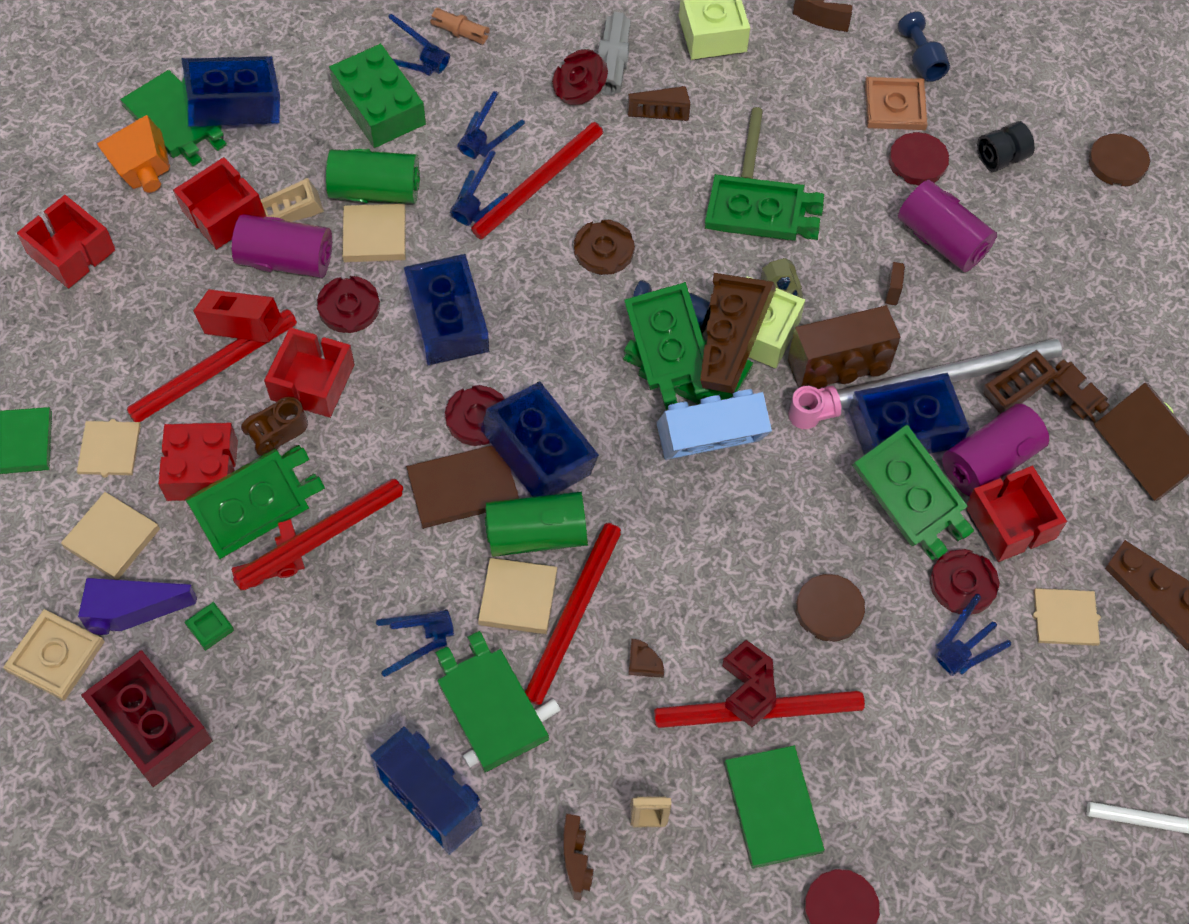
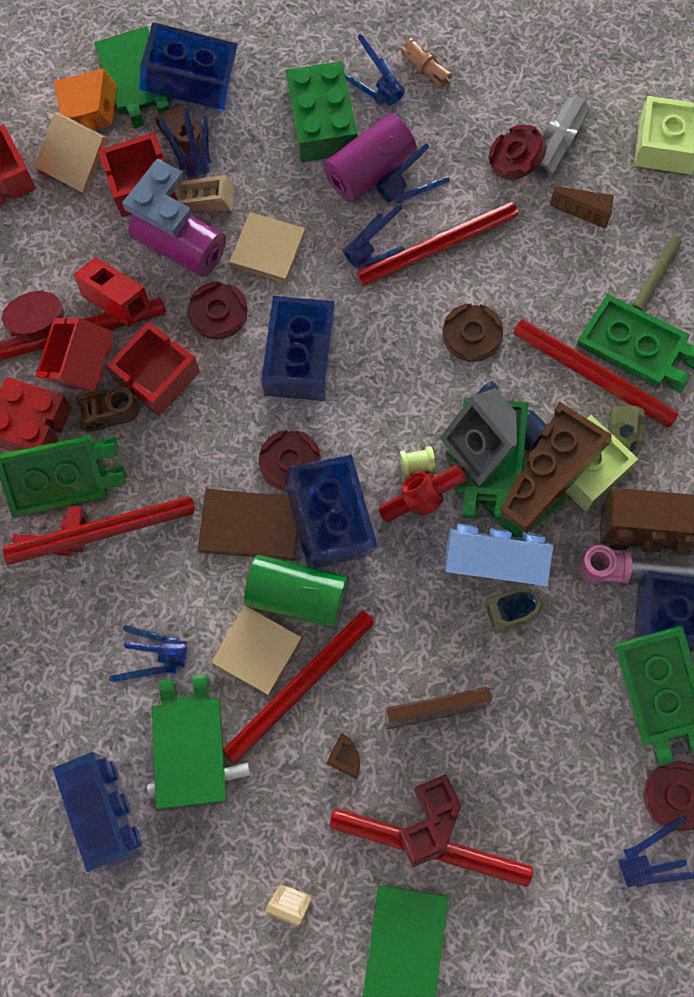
camera: 25 degrees right, 10 degrees up
(140, 204) = (70, 152): none -> tan tile
(163, 365) = (32, 315): none -> dark red tile
(226, 381) = (75, 354): none -> red piece
(245, 153) = (175, 121): none -> reddish brown piece
(251, 218) = (152, 200): none -> sand blue plate
(272, 173) = (194, 161): none -> clear blue plant
(372, 176) = (284, 192): green piece -> none
(443, 121) = (370, 157): none -> magenta piece
(576, 865) = (202, 934): reddish brown slope -> none
(602, 375) = (417, 462): none -> yellowish green bush
(619, 398) = (422, 493): none -> red axle
(656, 322) = (482, 434): none -> dark grey slope
(714, 578) = (437, 707): none -> reddish brown tile
(730, 245) = (595, 373): none -> red axle
(745, 471) = (513, 608): none -> rock
(830, 607) = (538, 772): reddish brown tile -> none

